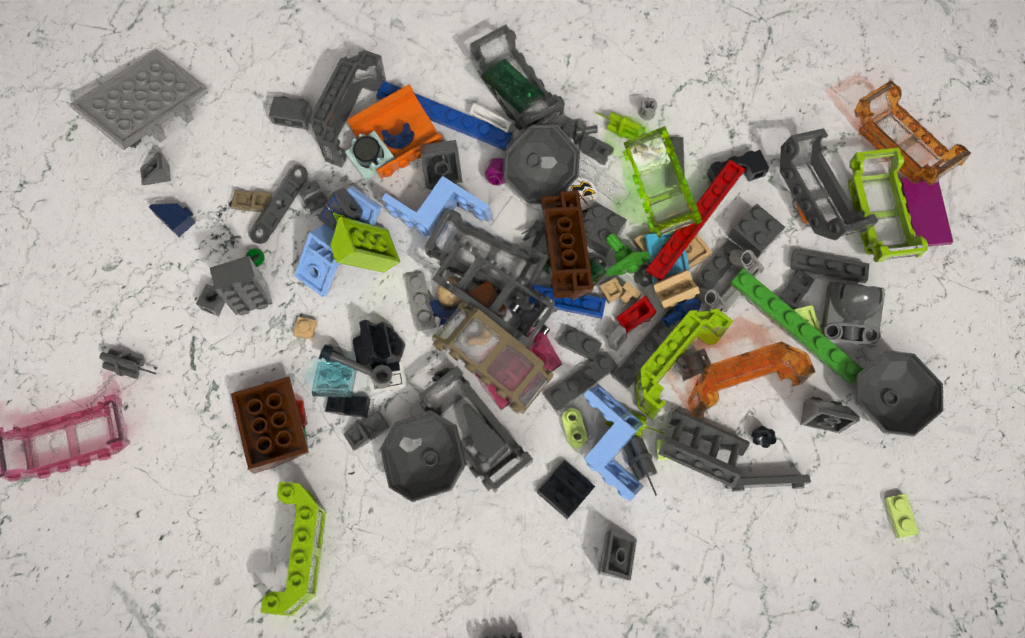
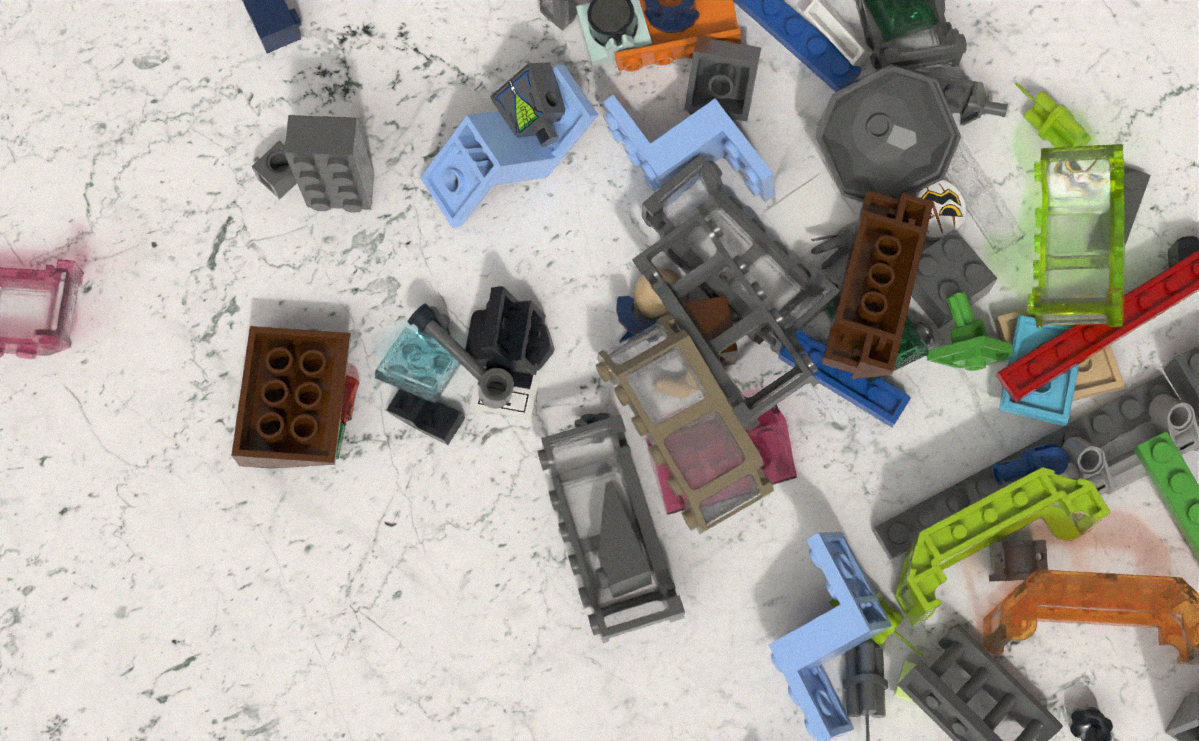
camera: 25 degrees right, 0 degrees up
(123, 363) = (108, 219): dark grey piece -> none
(250, 201) = (399, 36): dark tan slope -> none
(256, 252) = (372, 118): green plate -> none
(271, 214) = (422, 68): dark grey piece -> none
(304, 553) = (267, 619): lime windscreen -> none
(305, 328) = (405, 267): tan plate -> none
(312, 197) = (497, 61): dark grey piece -> none
(363, 246) = (545, 167): lime slope -> none
(366, 431) = (439, 466): dark grey slope -> none
(420, 302) = (603, 290): light grey plate -> none
(423, 456) = (510, 540): dark grey rock -> none
(494, 172) = (805, 122): magenta head -> none
(522, 312) = (762, 368): black pin -> none
(565, 489) = (722, 684): black slope -> none
(574, 427) = (776, 588): yellowish green plate -> none
(580, 344) = (839, 456): dark grey plate -> none
(581, 381) = (817, 516): dark grey plate -> none
(590, 146) = (984, 135): dark grey plate -> none
(611, 290) = (927, 387): tan plate -> none
(616, 336) = (903, 466): light grey tile -> none
(630, 293) = (956, 404): tan tile -> none
(637, 314) = (952, 442): red slope -> none
(641, 276) = (987, 385): dark grey plant -> none
(649, 111) = (1107, 105): light grey bush -> none
(676, 289) = (1035, 423): tan bracket -> none

